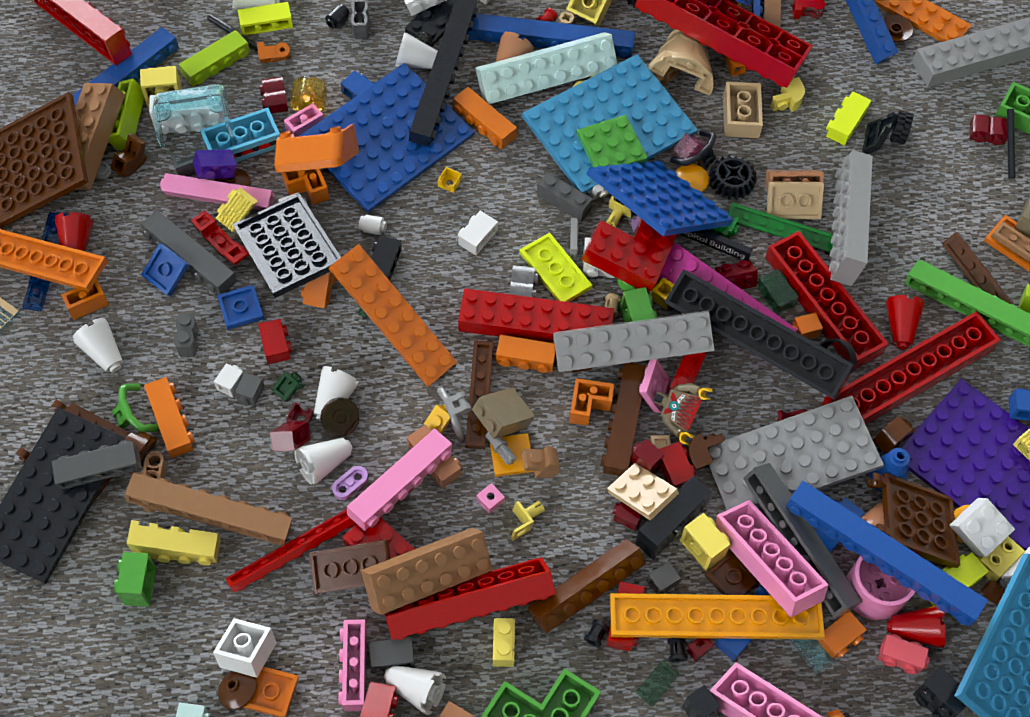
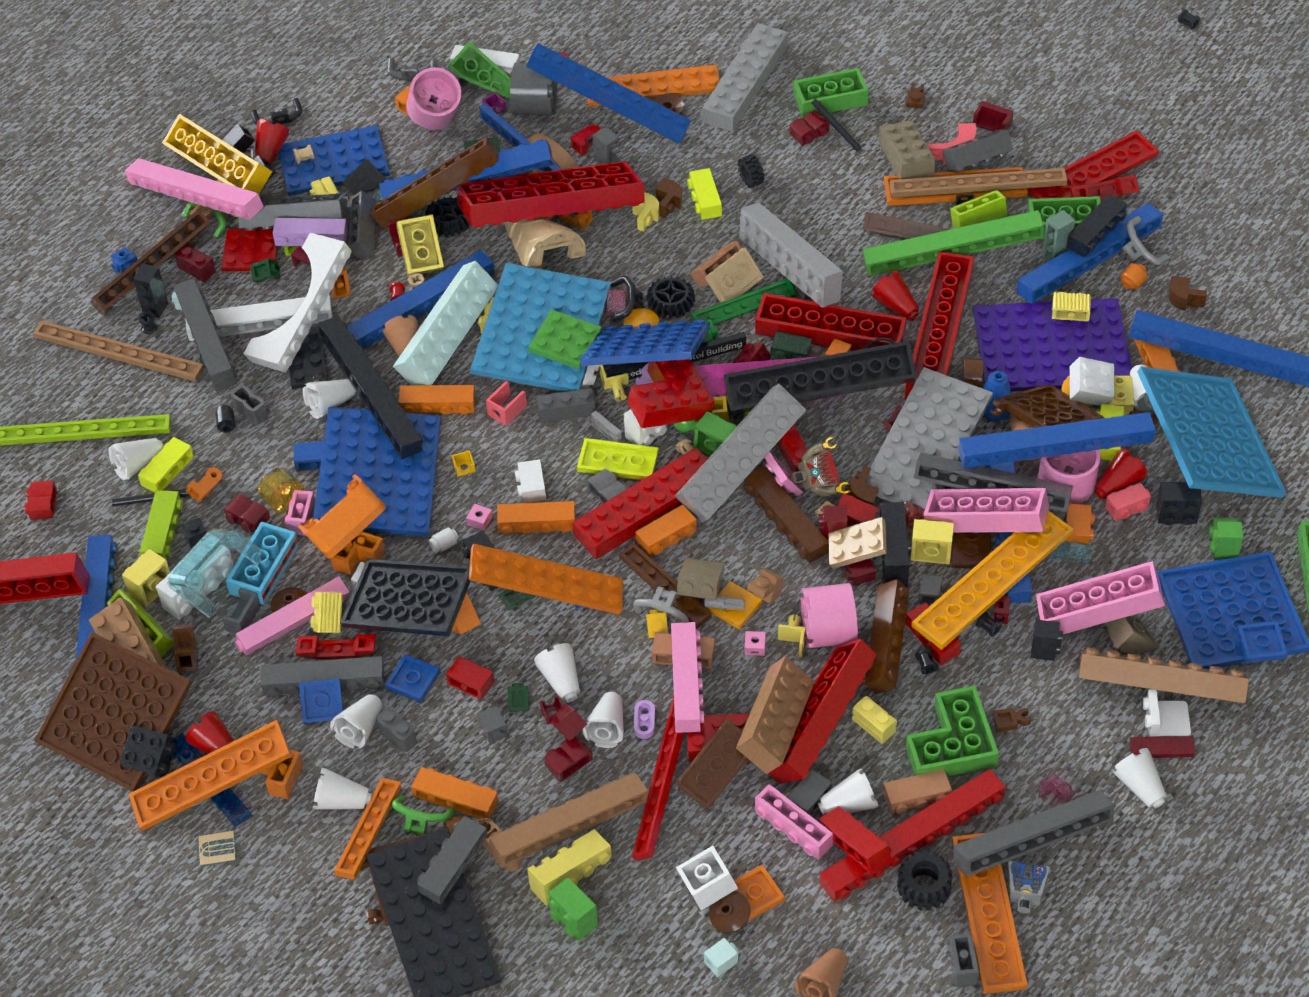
camera: 40 degrees left, 10 degrees down
(24, 209) = (148, 751): none -> black bracket
(85, 389) = (367, 829): none -> orange plate
(167, 304) = (357, 721): none -> white cone
(214, 164) = (271, 593): dark purple brick -> none
(228, 379) = (469, 731): white brick -> none
(229, 80) = (193, 532): none -> black brick
(267, 463) = (568, 758): none -> dark red brick
(340, 417) = (585, 682): dark brown tile -> none
(412, 233) = (479, 522): none -> bright pink piece
(450, 262) = (535, 517): none -> orange brick
(525, 168) = (511, 410): none -> coral piece
(556, 529) = (829, 615): none -> bright pink brick
(589, 396) = (746, 522): orange brick -> none
(657, 683) = (999, 657): clear green tile -> none
(717, 503) = (912, 512): none -> clear red head
(742, 110) = (625, 244): tan brick -> none
(810, 22) = (602, 146): none -> dark grey panel
(820, 99) = (669, 195): none -> reddish brown brick
(877, 132) = (738, 186): black wing -> none

